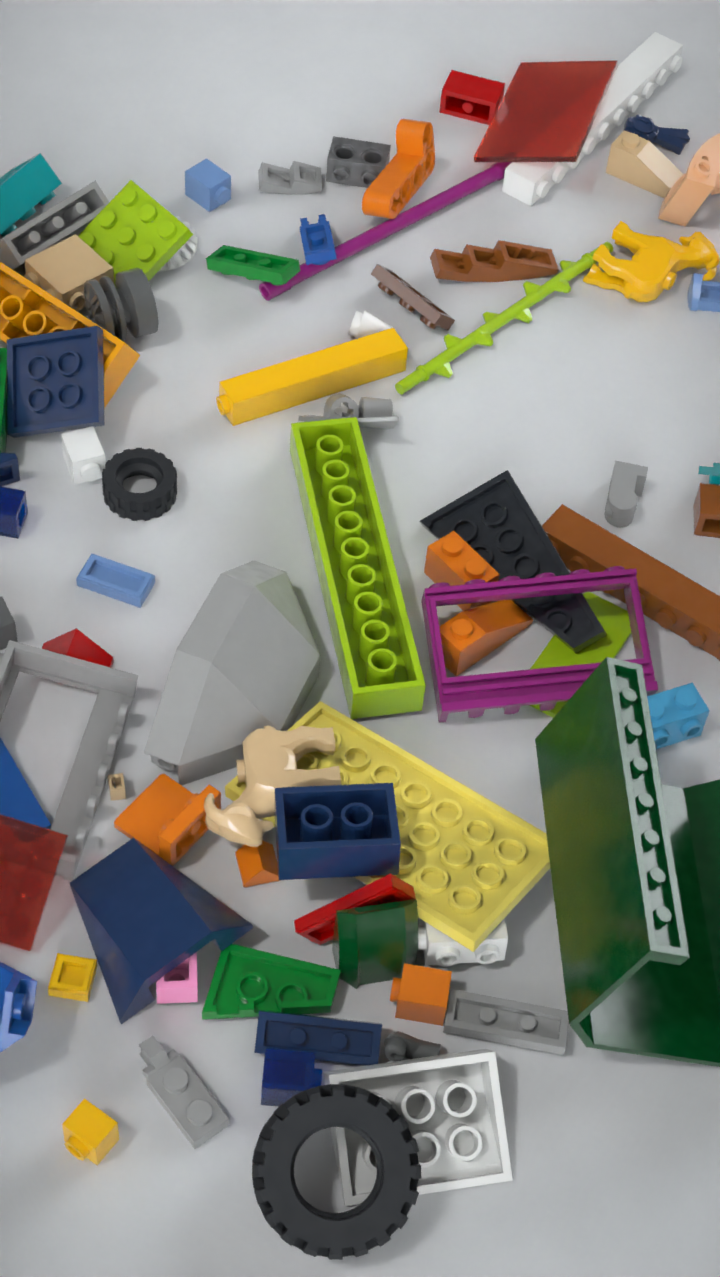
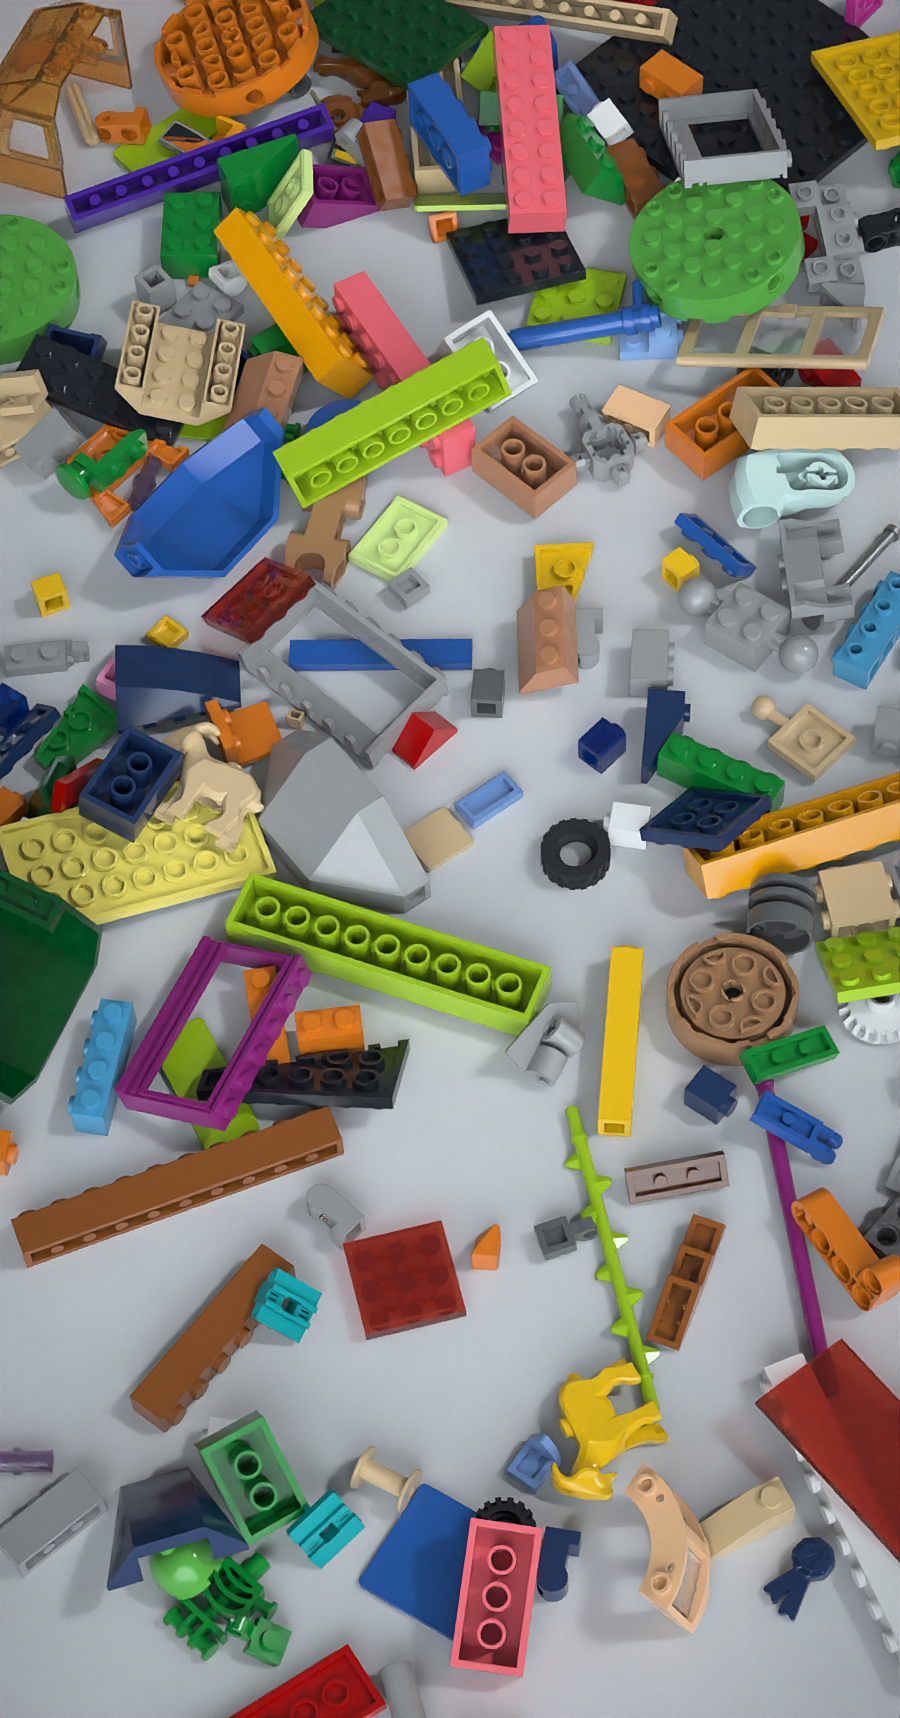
camera: 130 degrees right, 5 degrees up
(178, 600) = (438, 839): none -> tan piece
(216, 344) = (721, 1027): none -> medium nougat brick
(322, 303) = (711, 1095): none -> dark blue brick
(366, 324) = (656, 1120): white cone -> none
(519, 346) = (559, 1237): none -> dark grey plate
(569, 384) = (487, 1249): none -> orange slope
(638, 424) = (404, 1280): none -> clear red plate

